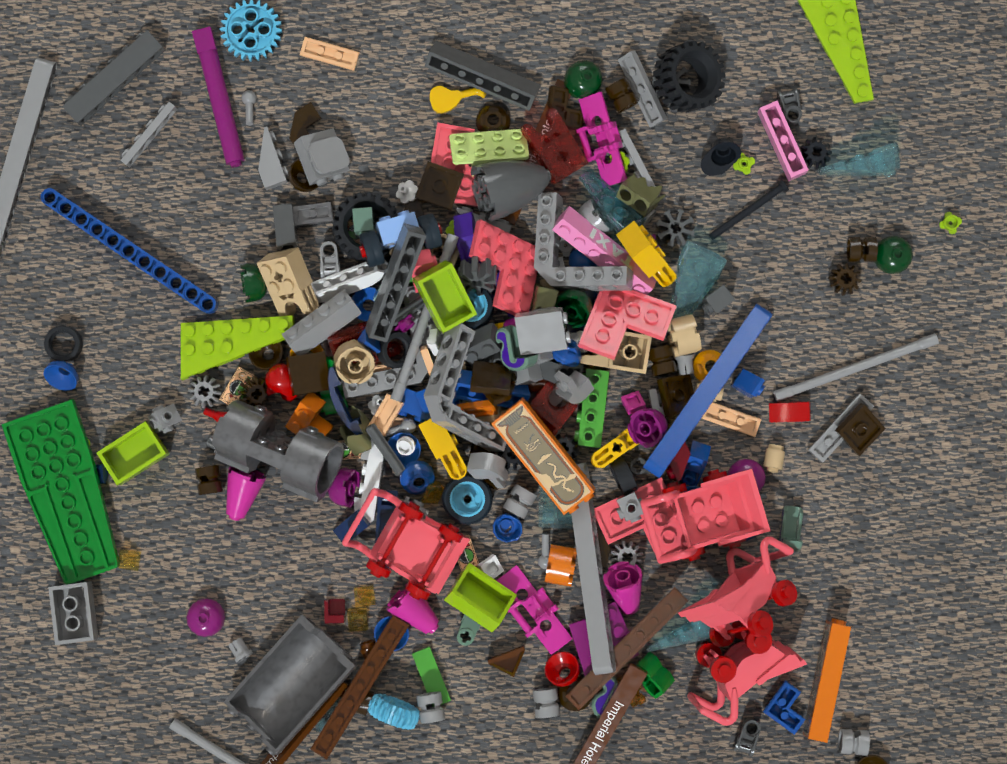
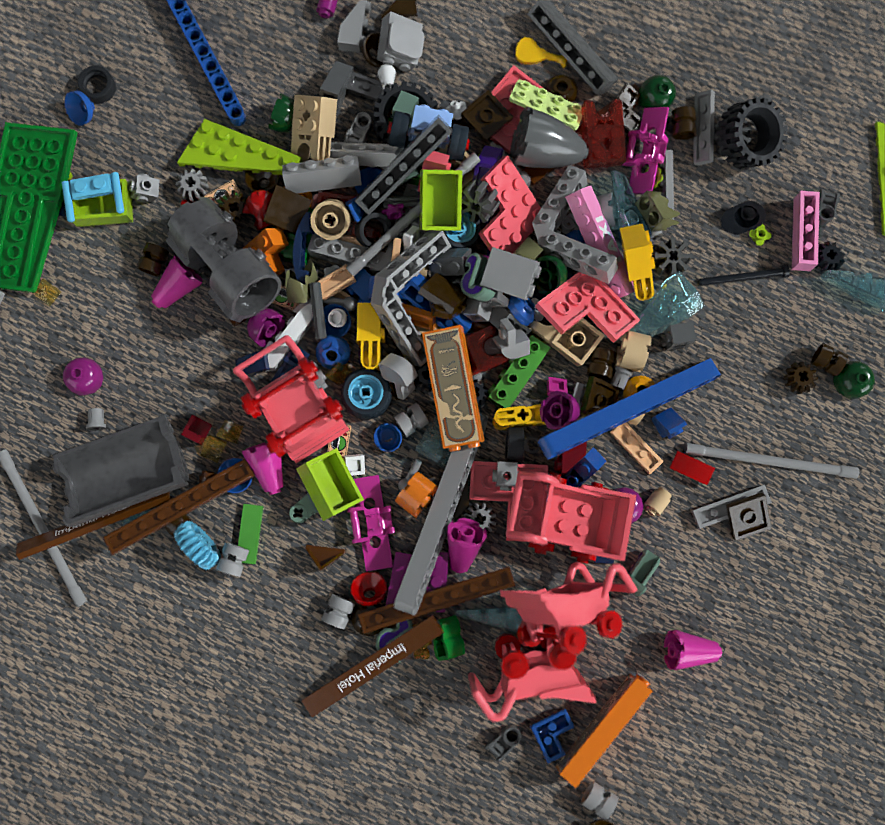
camera: 25 degrees right, 5 degrees down
(121, 445) = (92, 187): none -> medium azure plate
(328, 196) = (386, 75): none -> white cone
(867, 574) = (689, 650): none -> dark pink cone

